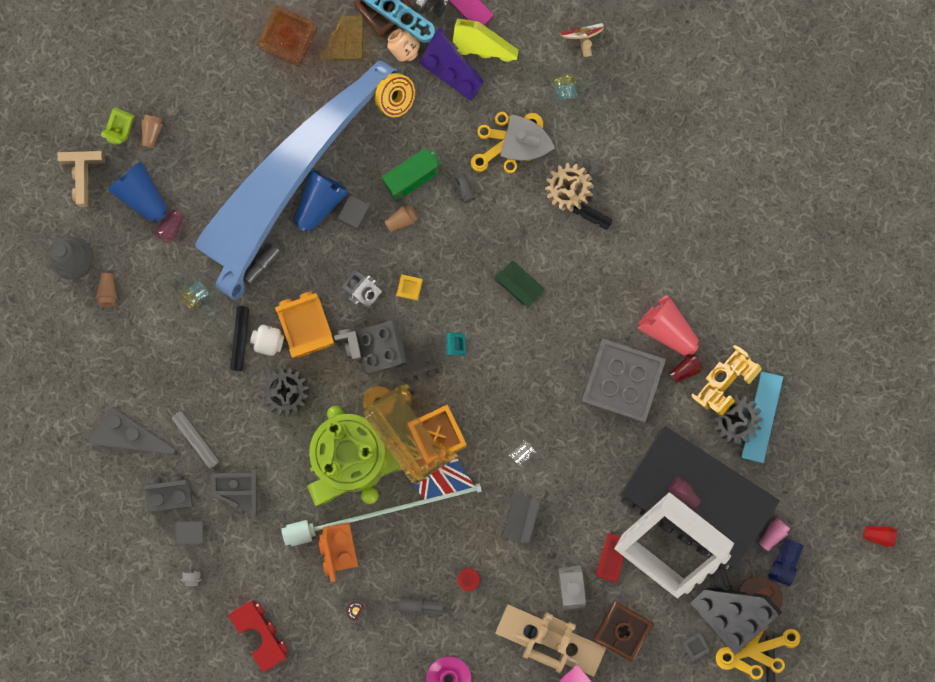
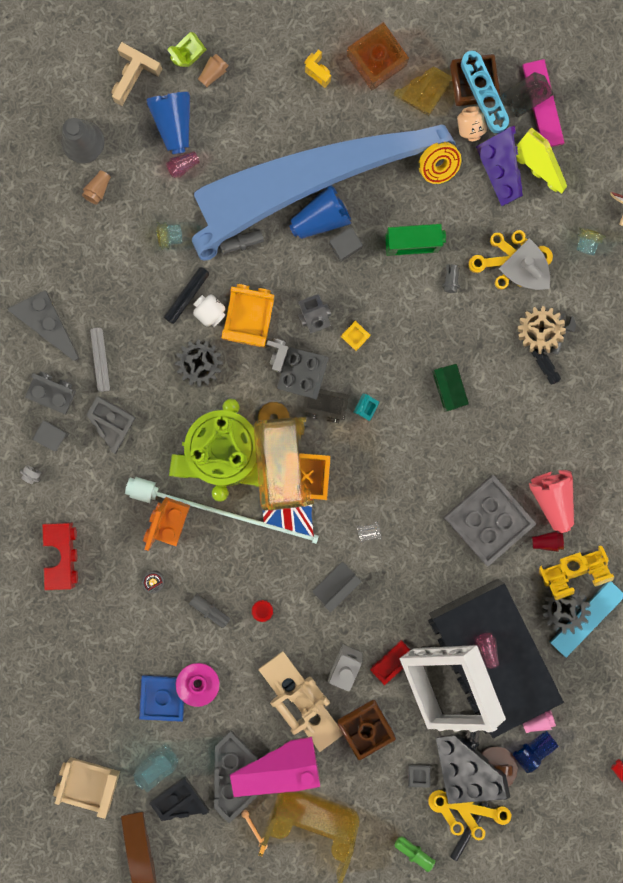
camera: 25 degrees right, 5 degrees up
(242, 79) = (317, 72): none -> yellow bracket
(401, 218) = (384, 273): medium nougat cone -> none

